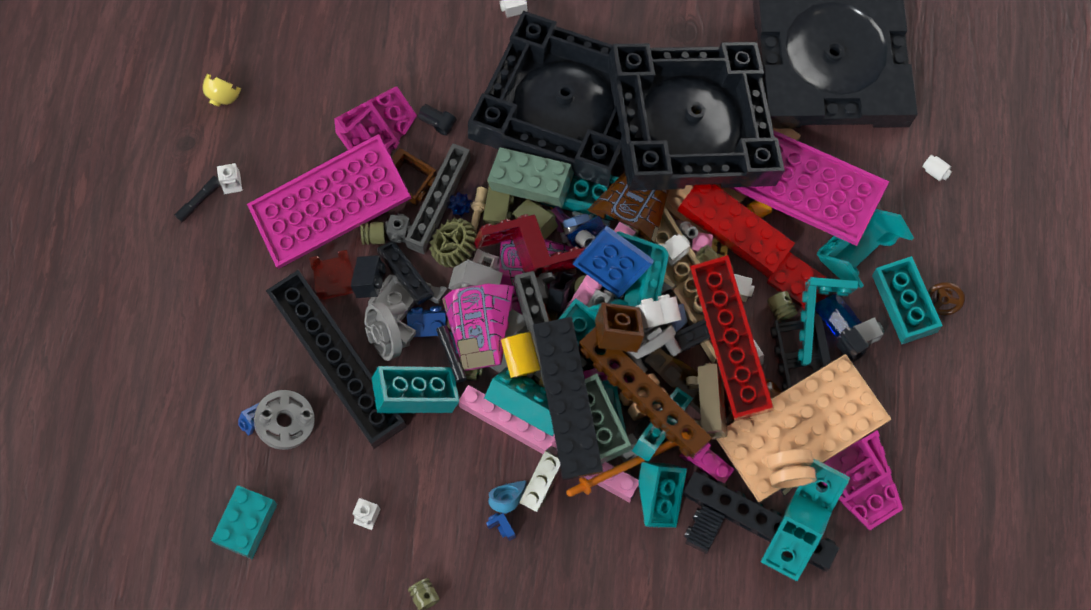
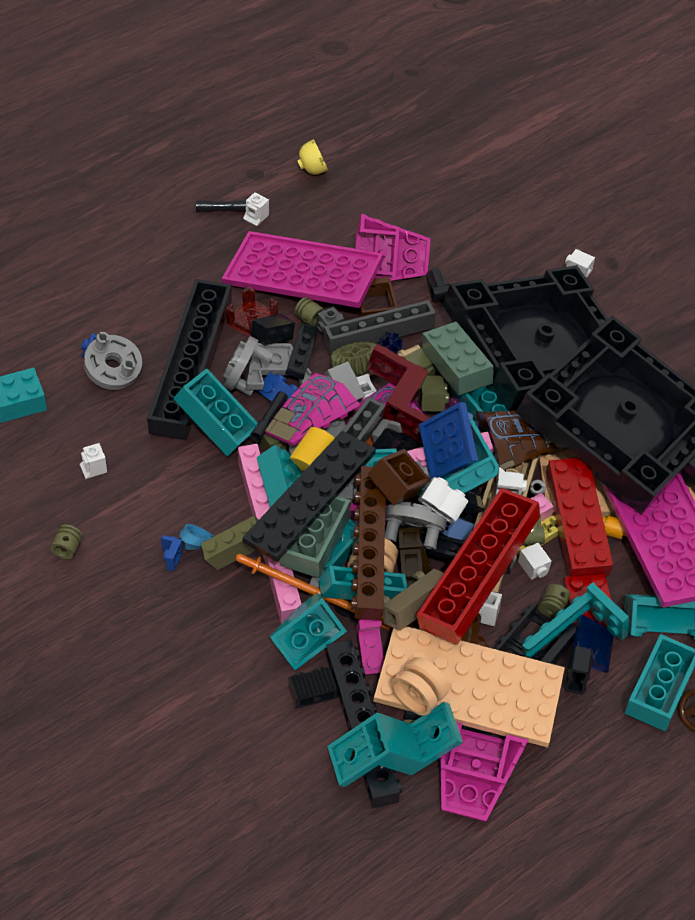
camera: 40 degrees right, 20 degrees down
(870, 330) = (604, 678): light grey brick -> none

